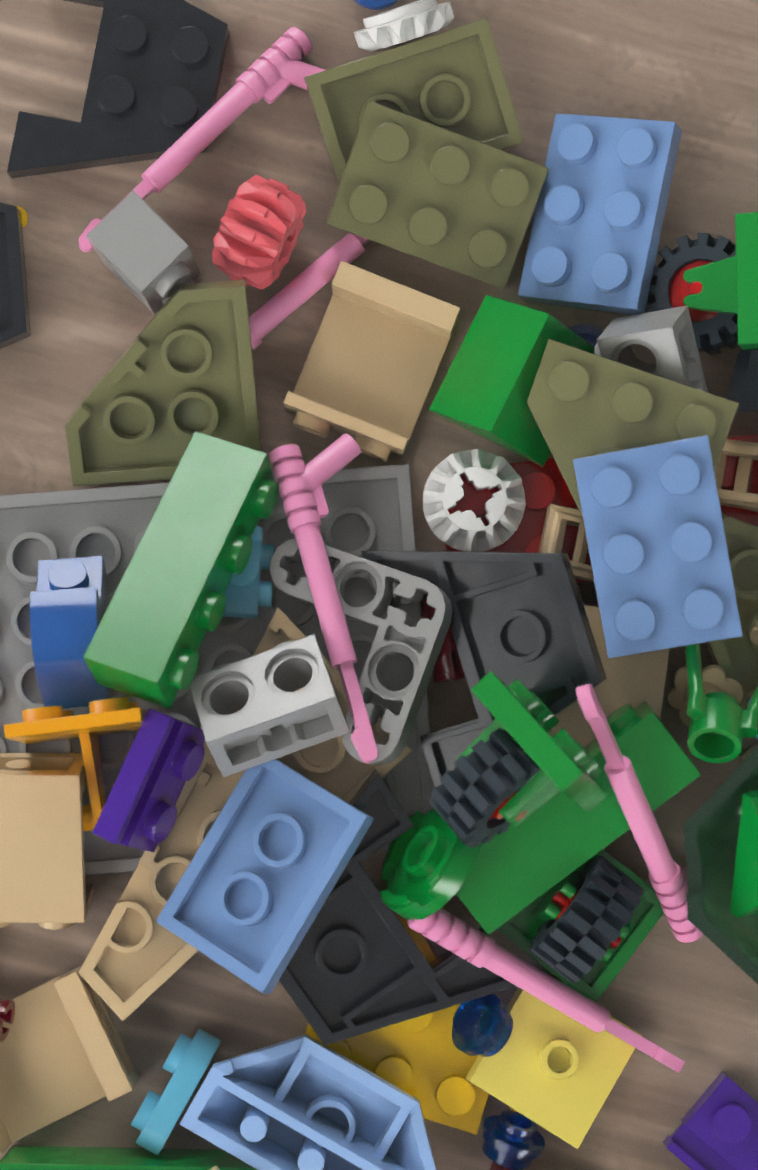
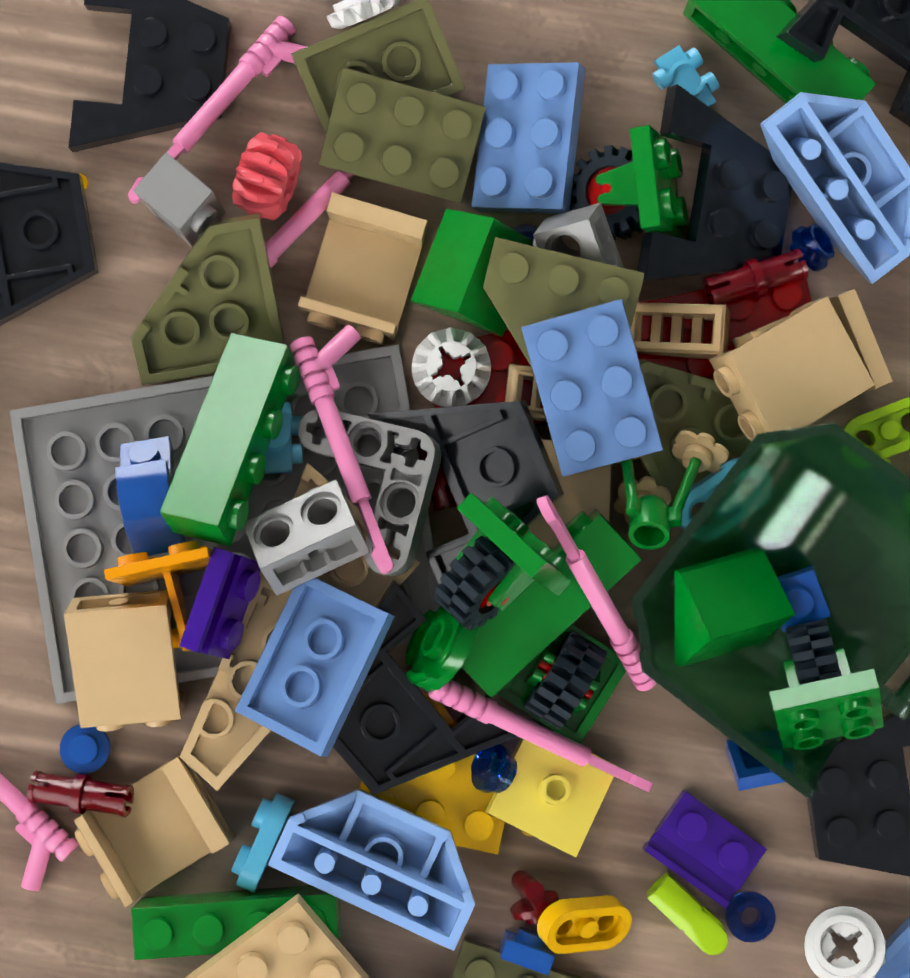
camera: 10 degrees left, 0 degrees up
(511, 1140) = (525, 855): clear blue plate -> none

